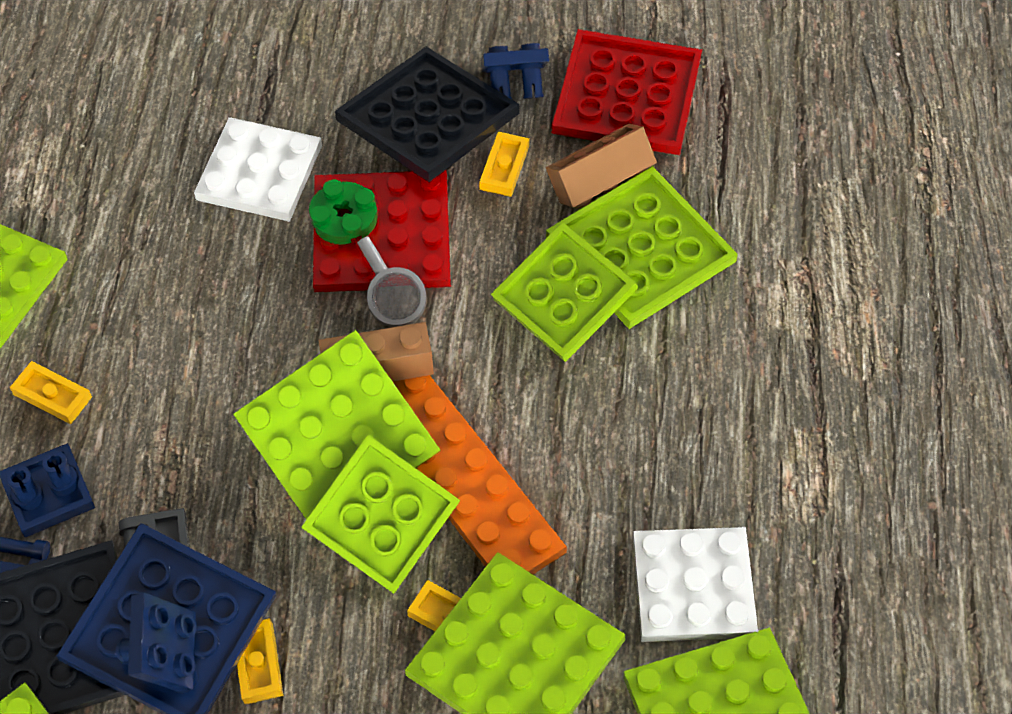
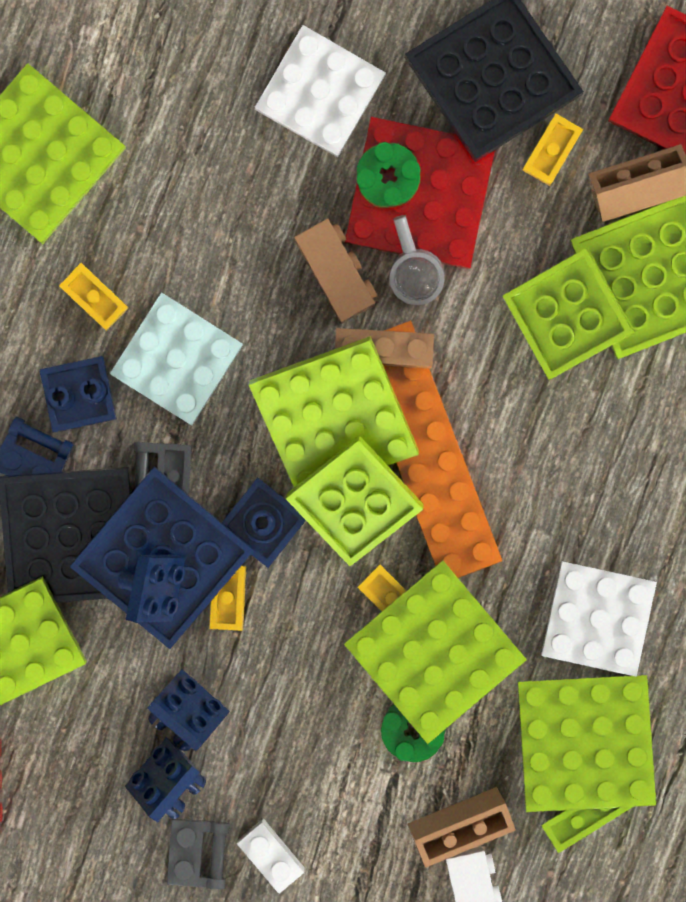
camera: 15 degrees right, 30 degrees up
(153, 434) = (176, 359): none -> light aqua plate
(287, 566) = (264, 521): none -> dark blue plate
(304, 305) = (336, 270): none -> medium nougat brick
(528, 59) = (594, 37): dark blue plate -> none

